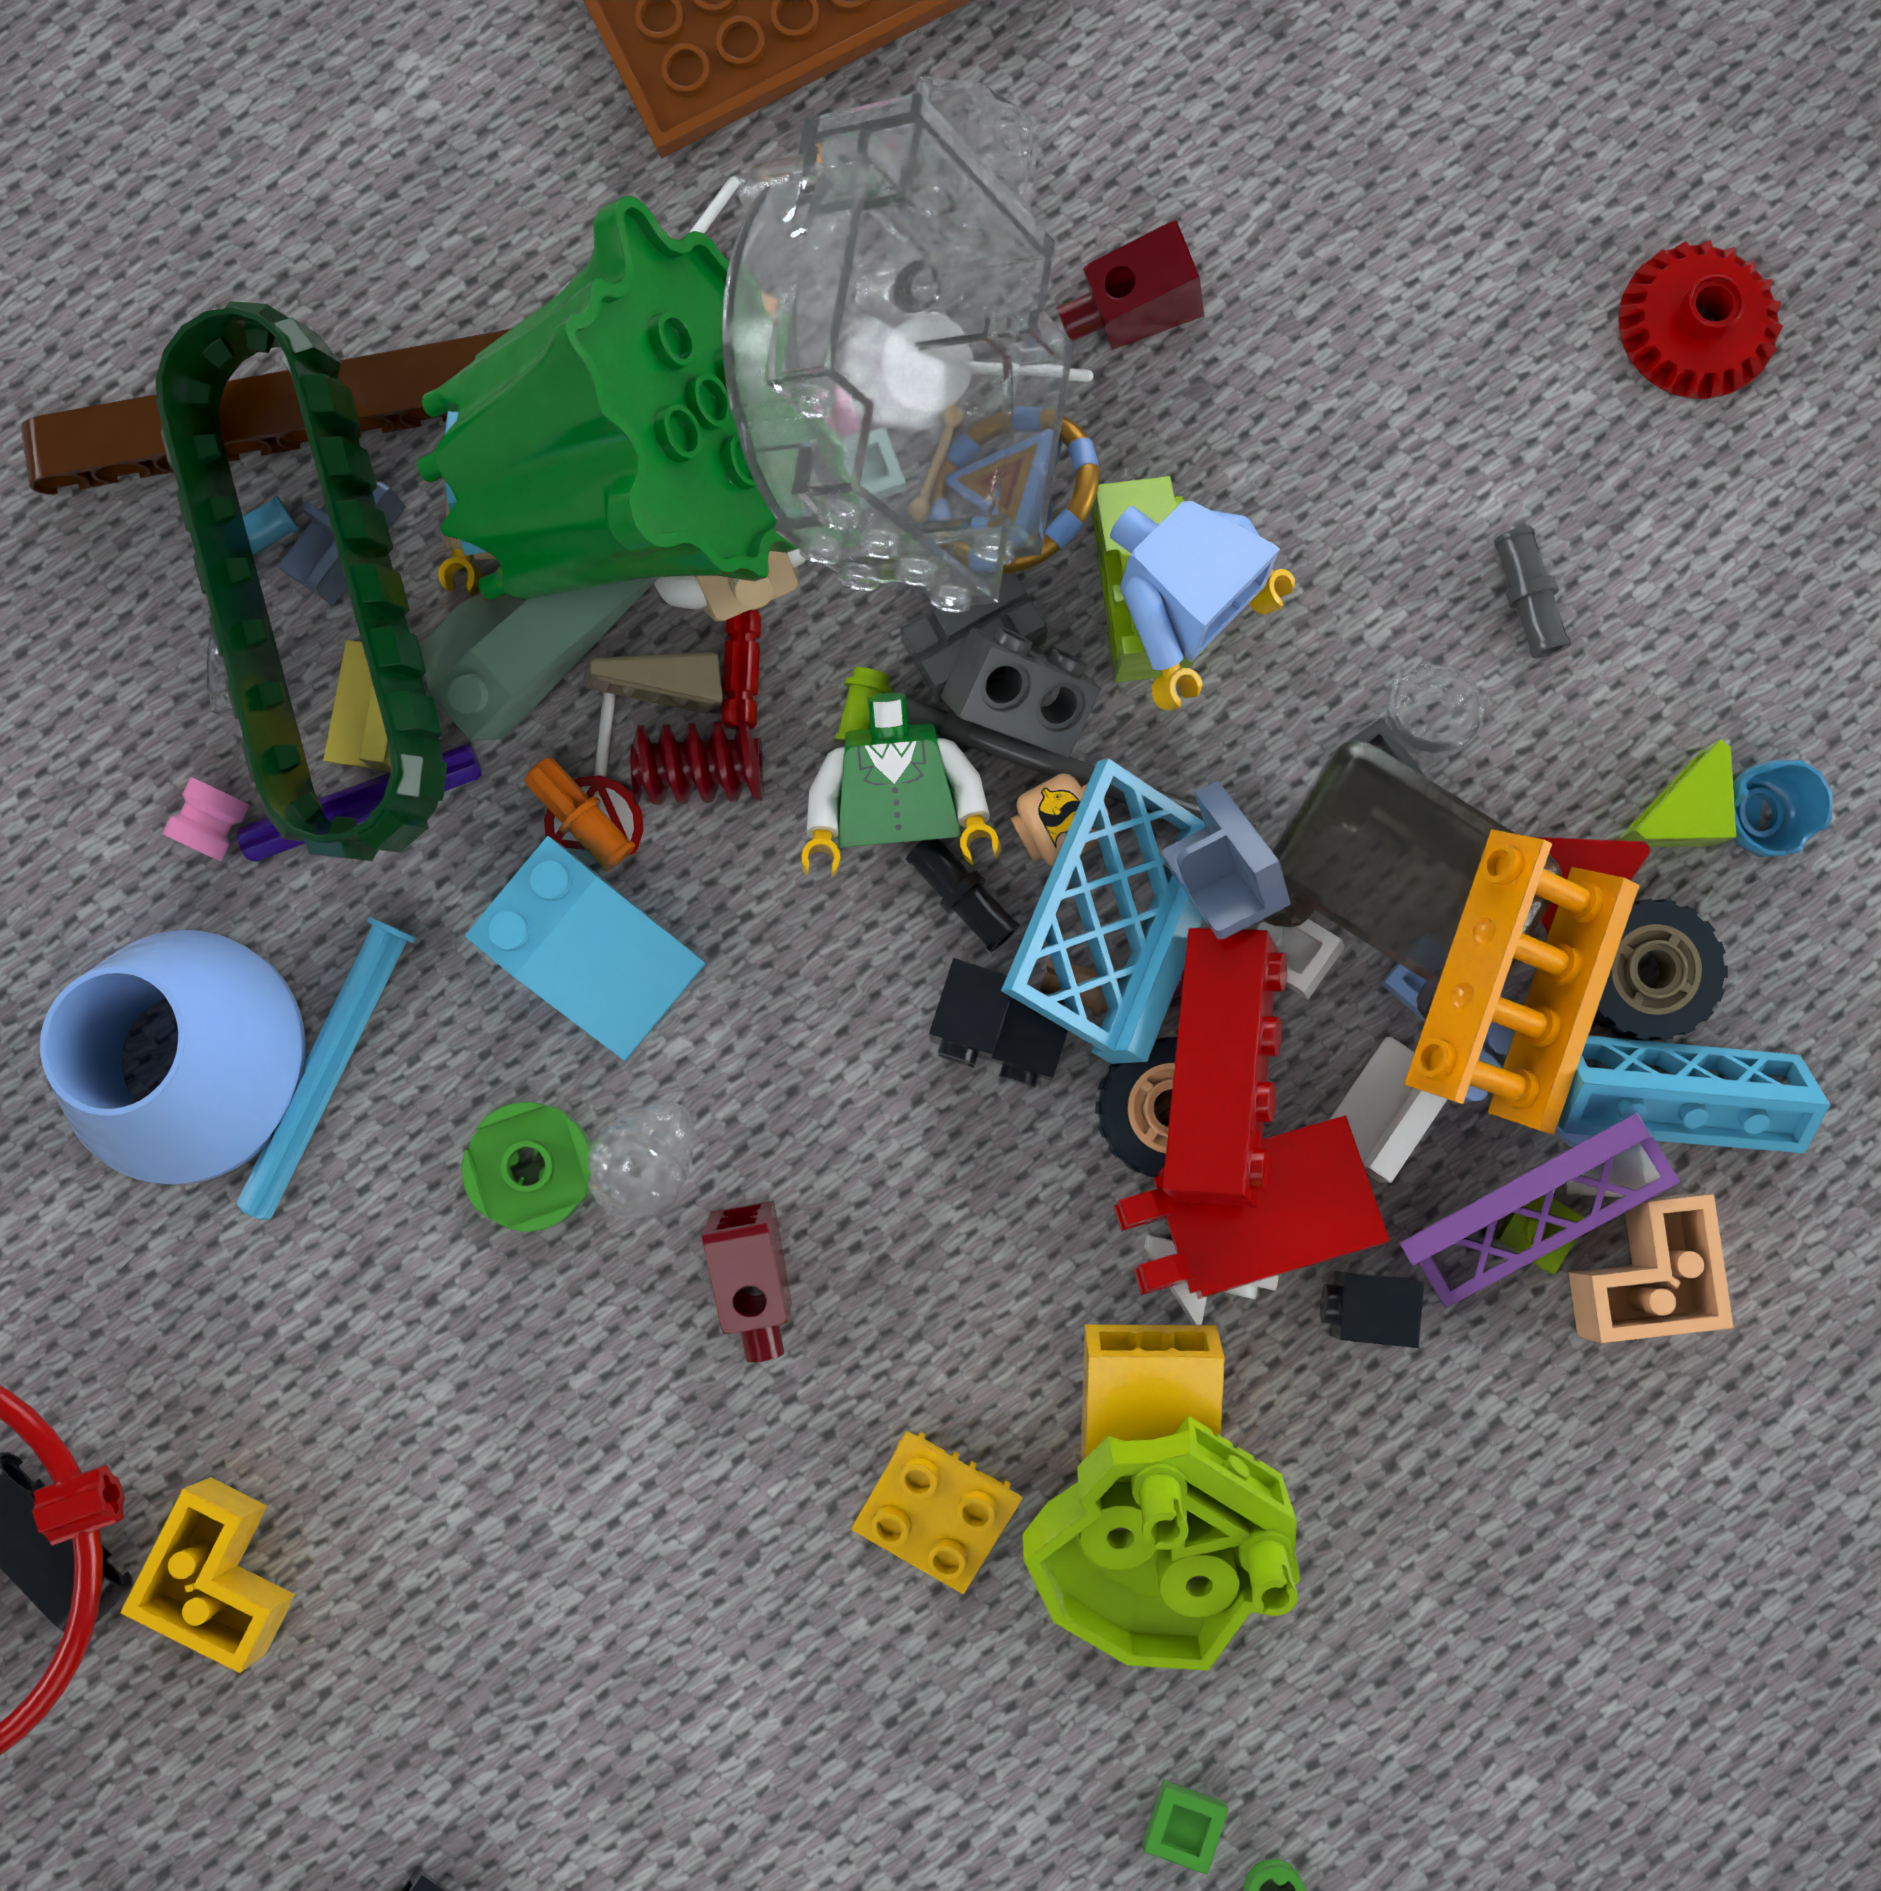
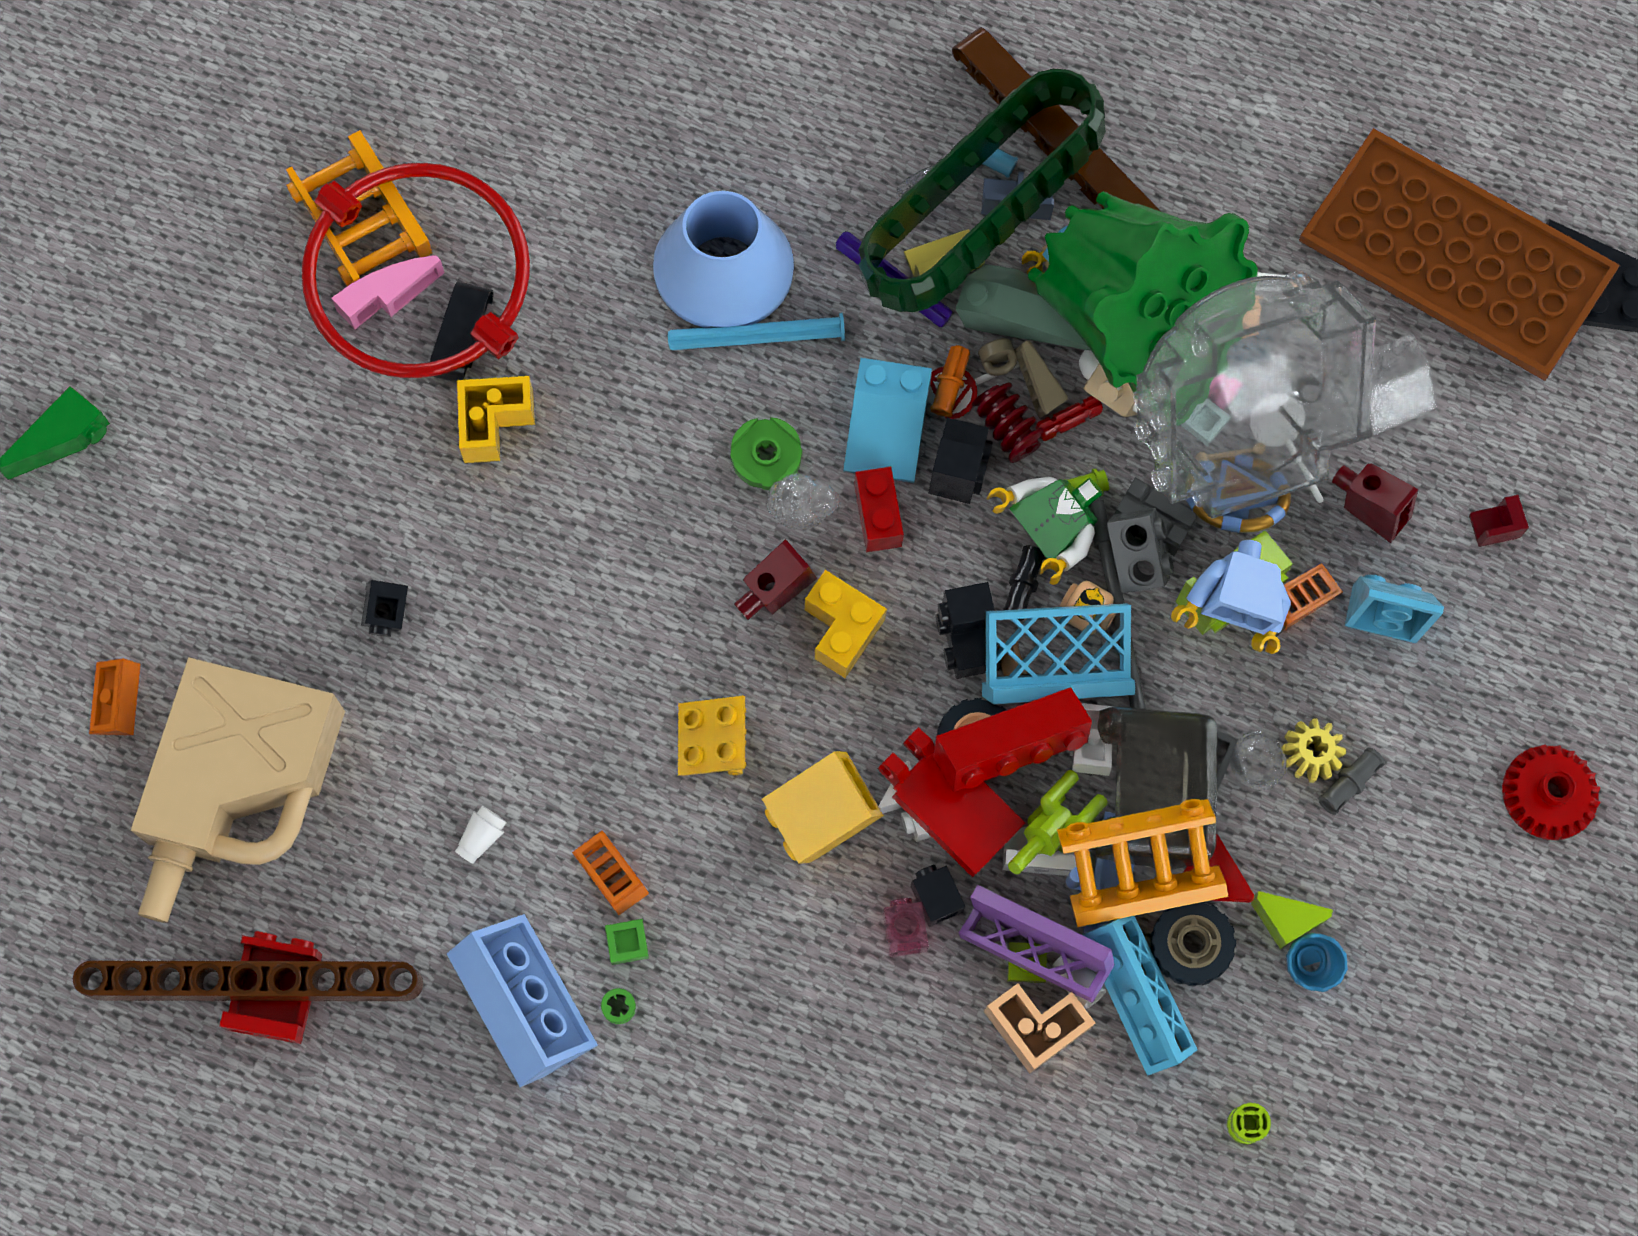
camera: 55 degrees right, 10 degrees down
(206, 819) = (843, 213): bright pink wheel -> none
(574, 717) = (997, 352): none -> dark tan tile
(716, 875) = (960, 461): none -> black brick
(722, 1046) = (878, 509): none -> red brick
(874, 1188) = (851, 620): none -> yellow brick
(1057, 1765) = (628, 896): none -> orange slope
(1187, 1513) = (732, 843): lime brick -> none
(1227, 867) = (1110, 686): sand blue panel -> none
(1236, 465) = (1312, 605): none -> orange slope
(1266, 139) = (1500, 522): none -> dark red panel
(1319, 368) = (1392, 609): none -> medium azure slope
(1374, 1072) = (1049, 817): none -> lime plant
(1424, 1395) = (905, 944): none -> clear pink brick
(1437, 608) = (1304, 758): none -> light yellow gear

